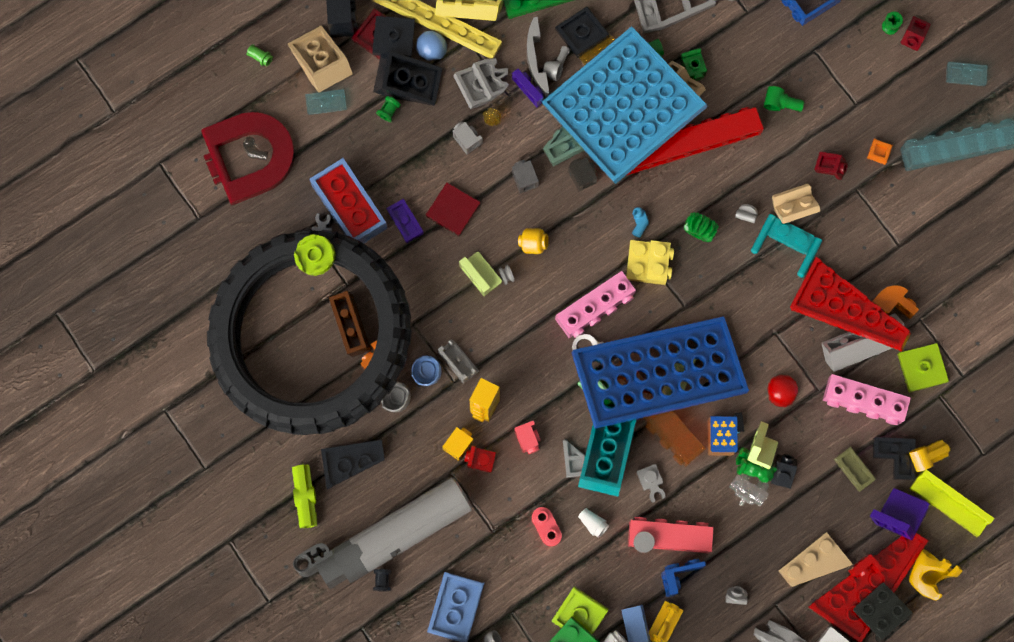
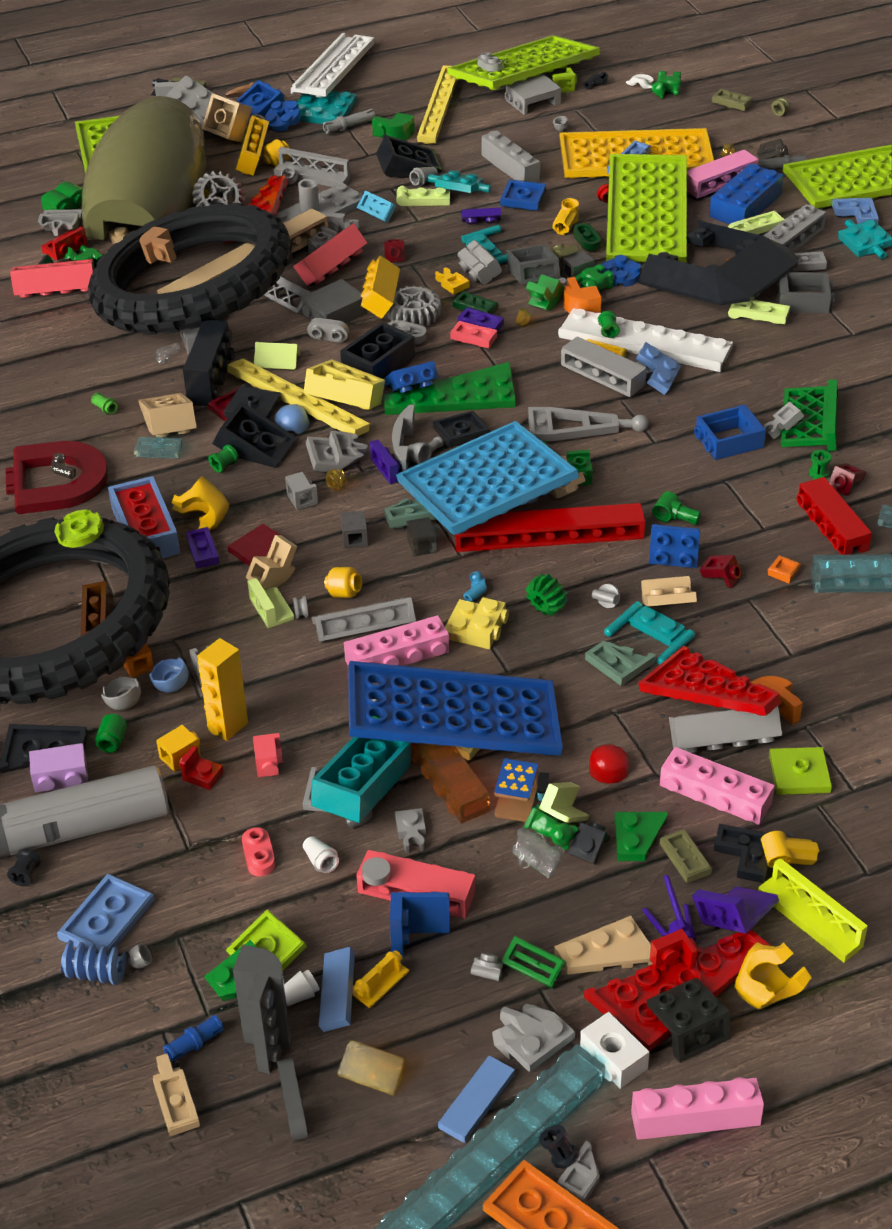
camera: 15 degrees right, 35 degrees down
(375, 485) = (58, 767): none -> lavender brick
(392, 170) = (203, 498): none -> yellow piece
(401, 438) = (111, 733): none -> green brick
(472, 235) = (277, 566): none -> tan brick
(560, 276) = (364, 618): none -> light grey fence
(769, 284) = (618, 662): none -> sand green wing
(772, 580) = (554, 973): none -> green tile
(790, 150) = (674, 546): none -> blue bracket
(815, 453) = (637, 833): none -> green wing
(863, 540) = (680, 922): none -> dark purple plant
(911, 86) = (833, 516): none -> red brick

